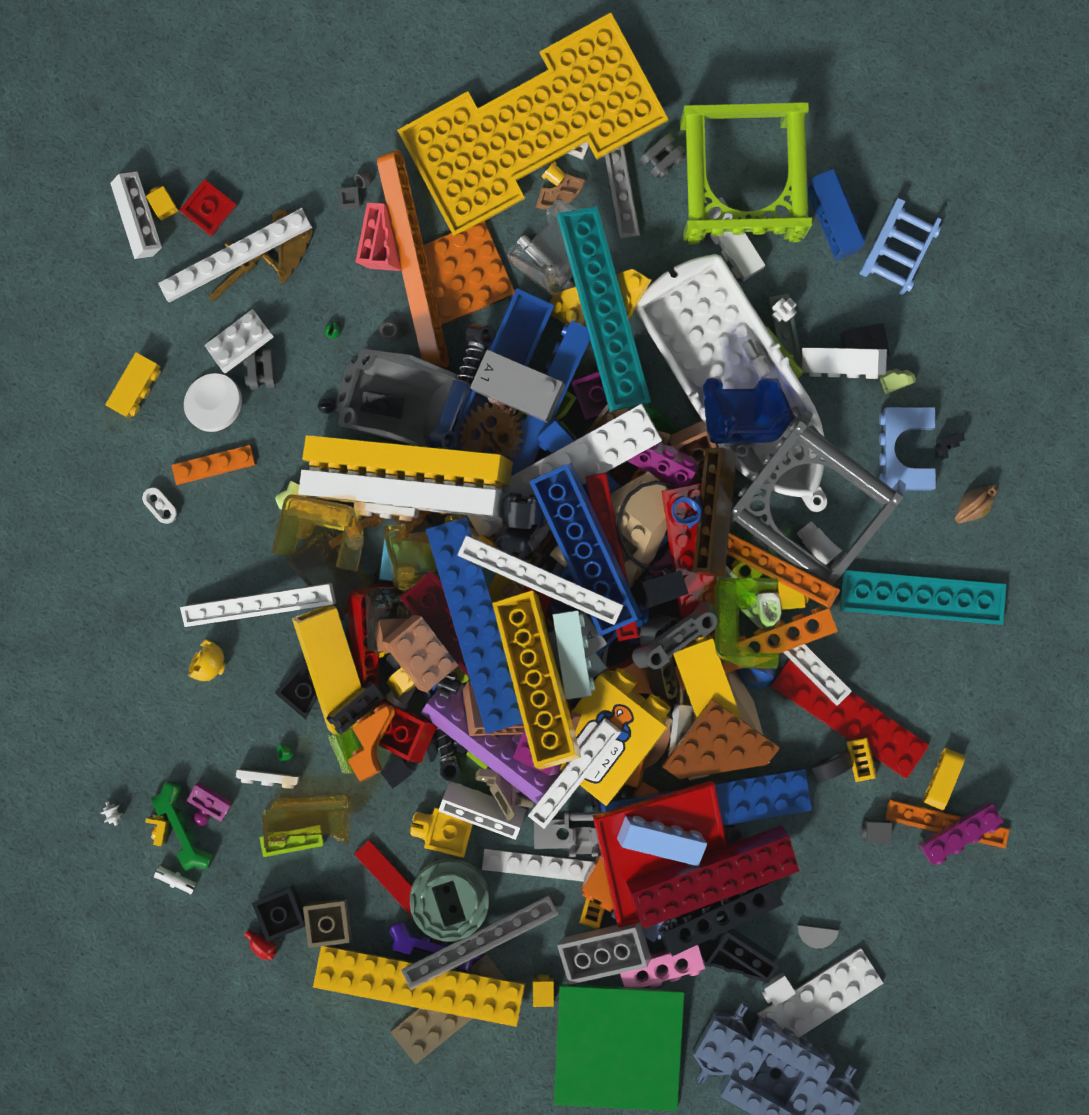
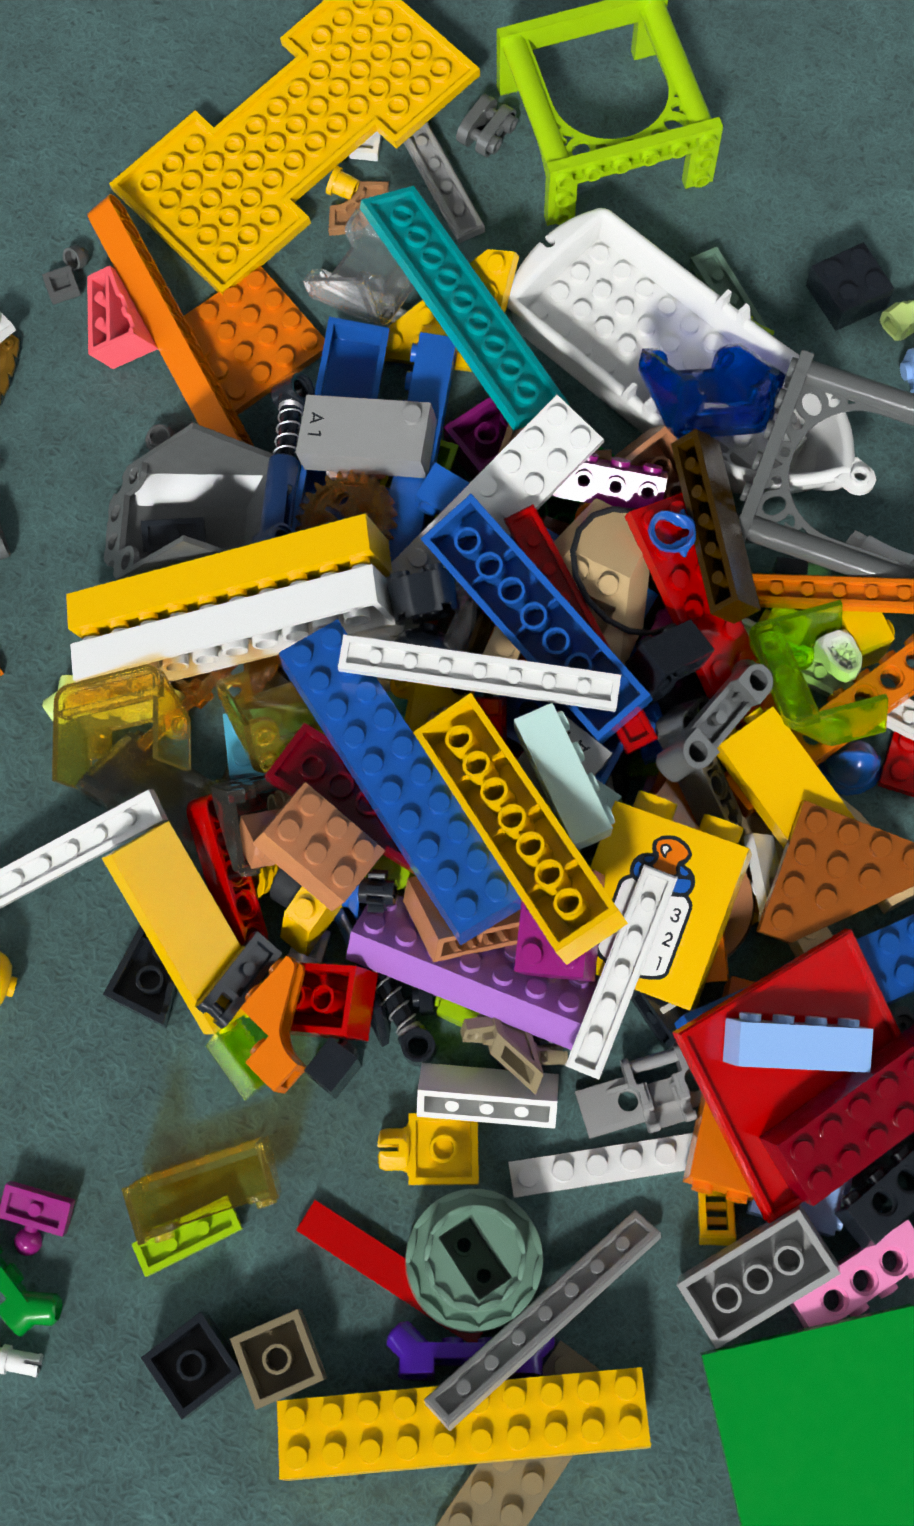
camera: 15 degrees left, 15 degrees down
(260, 946) = (176, 1435): red plant -> none
(267, 778) = (124, 1141): white tile -> none
(284, 752) = (142, 1093): green hinge -> none
(325, 409) = (94, 566): black hinge -> none
(336, 332) = (83, 460): green hinge -> none
(386, 511) = (214, 668): white tile -> none
(543, 991) = (675, 1377): yellow brick -> none
(737, 249) = (627, 203): white brick -> none
(756, 358) = (700, 328): light grey axle -> none
(784, 310) = (718, 261): white gear -> none
(835, 215) = (751, 132): blue brick -> none
(844, 361) = (828, 298): white brick -> none
(889, 230) = (827, 137): light blue fence -> none

